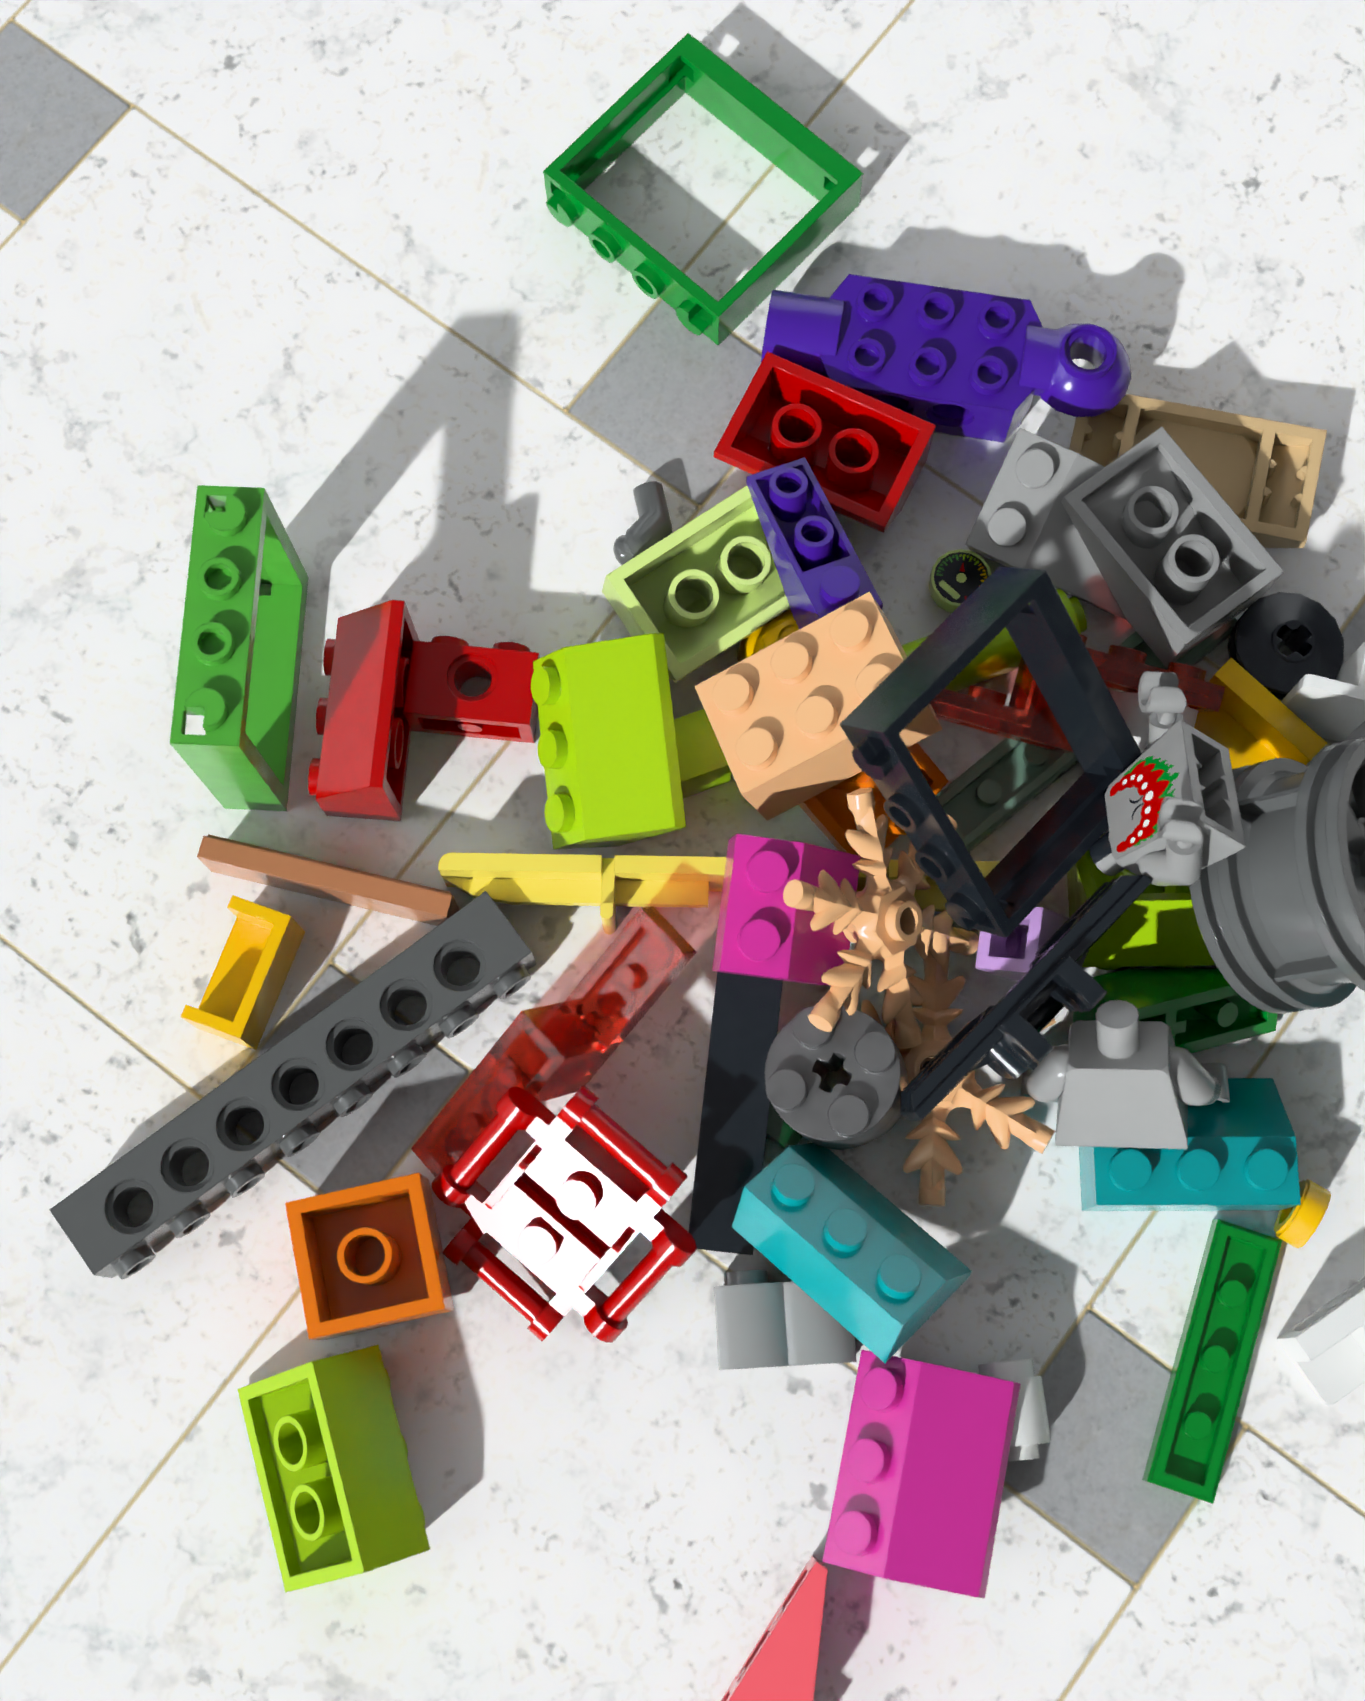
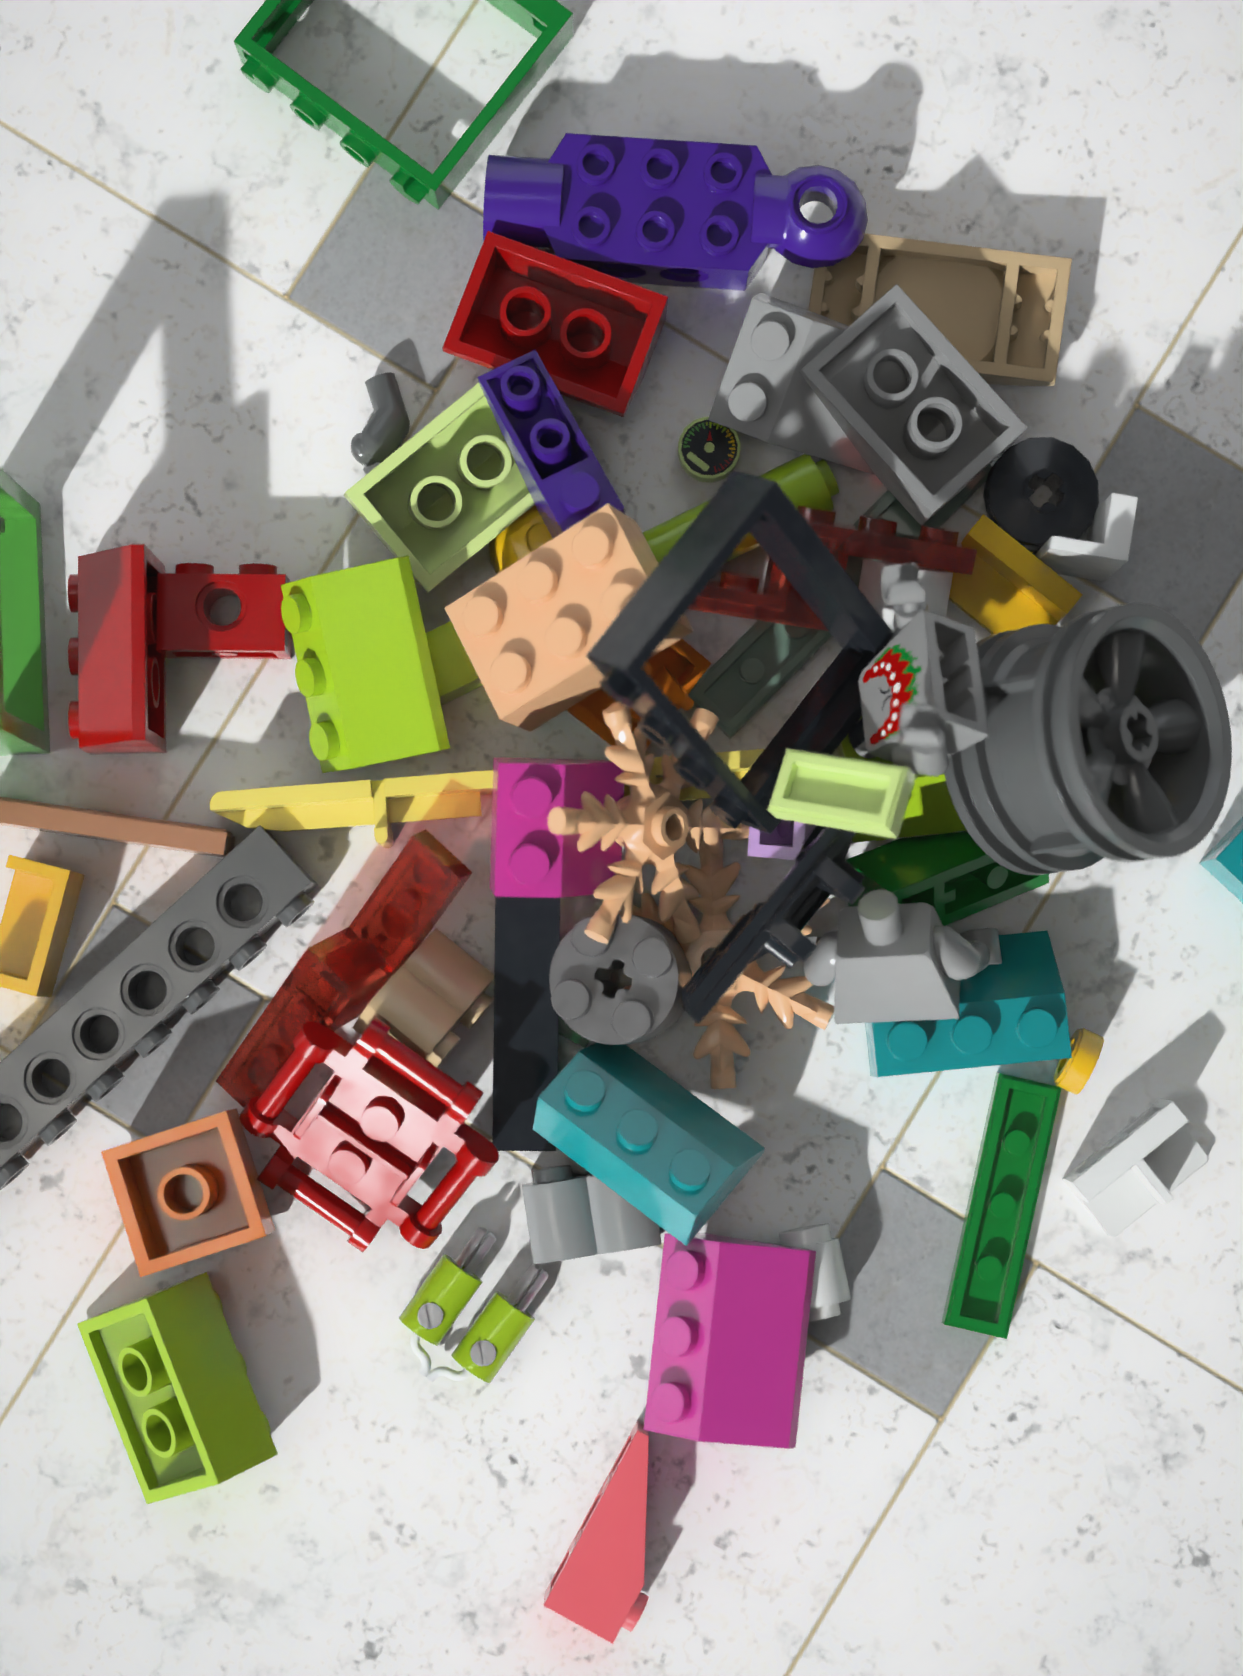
camera: 10 degrees left, 10 degrees up
(642, 1079) = (431, 998): none -> tan brick
(670, 1441) = (495, 1329): none -> lime piece
(1087, 896) = (842, 793): none -> yellowish green tile

